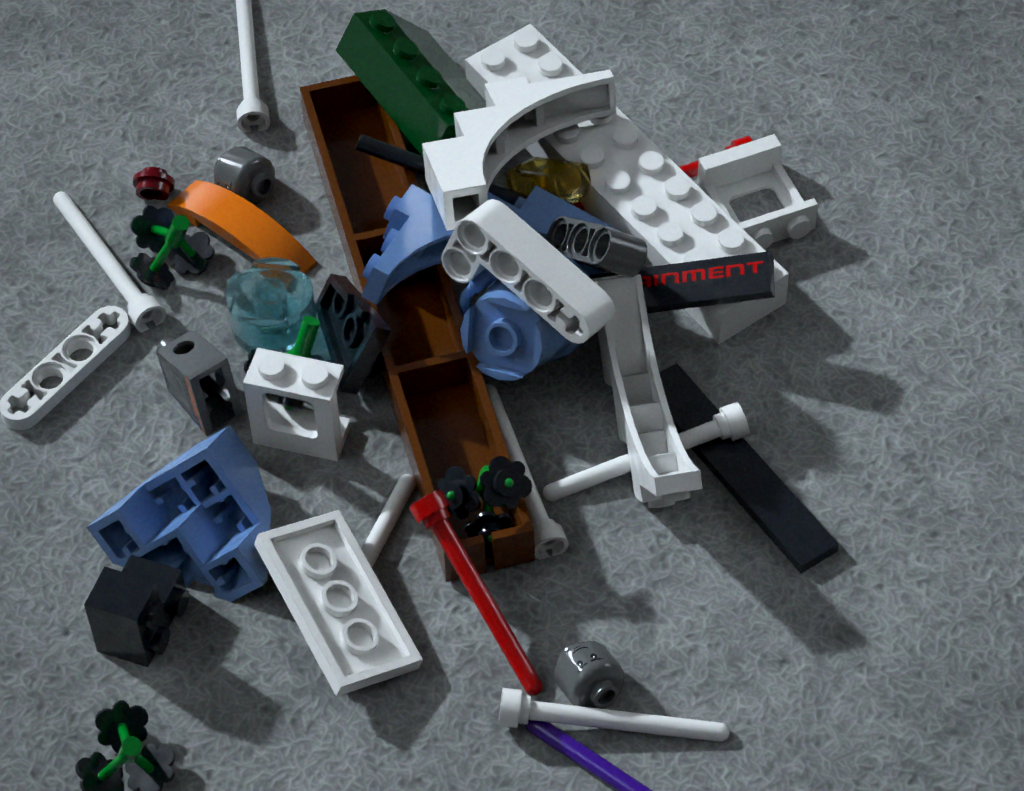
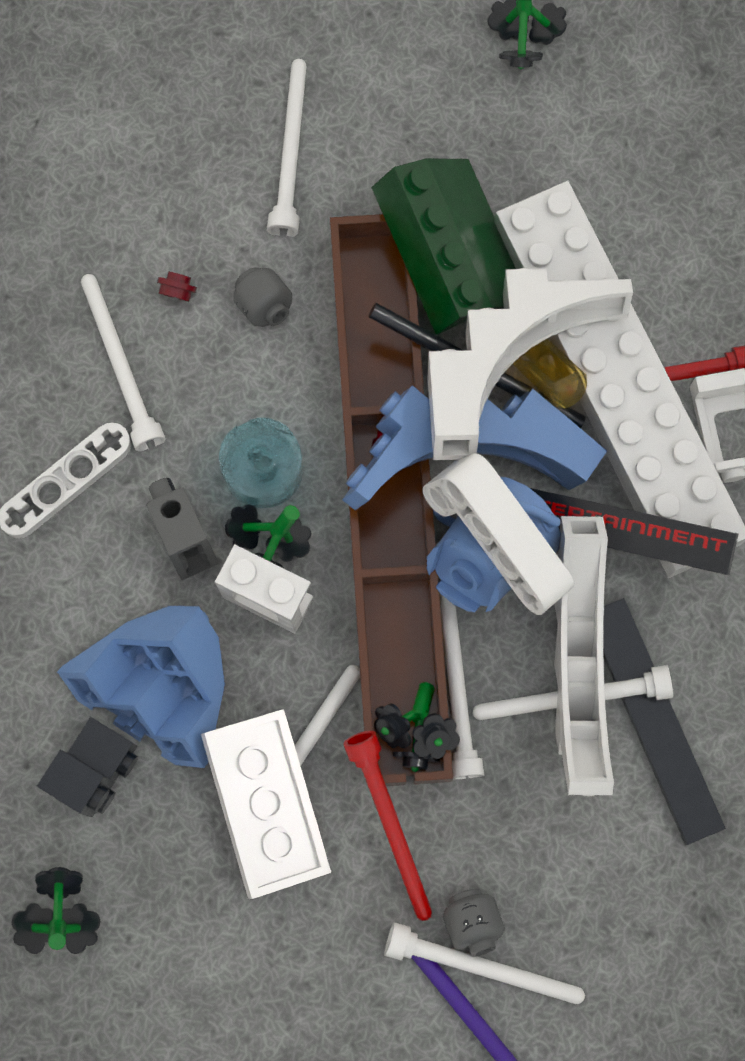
camera: 10 degrees right, 25 degrees up
(168, 236) = (198, 373): black plant -> none
(239, 223) = (251, 356): orange slope -> none
(350, 330) = (330, 521): black wing -> none
(598, 246) = (572, 497): dark grey beam -> none

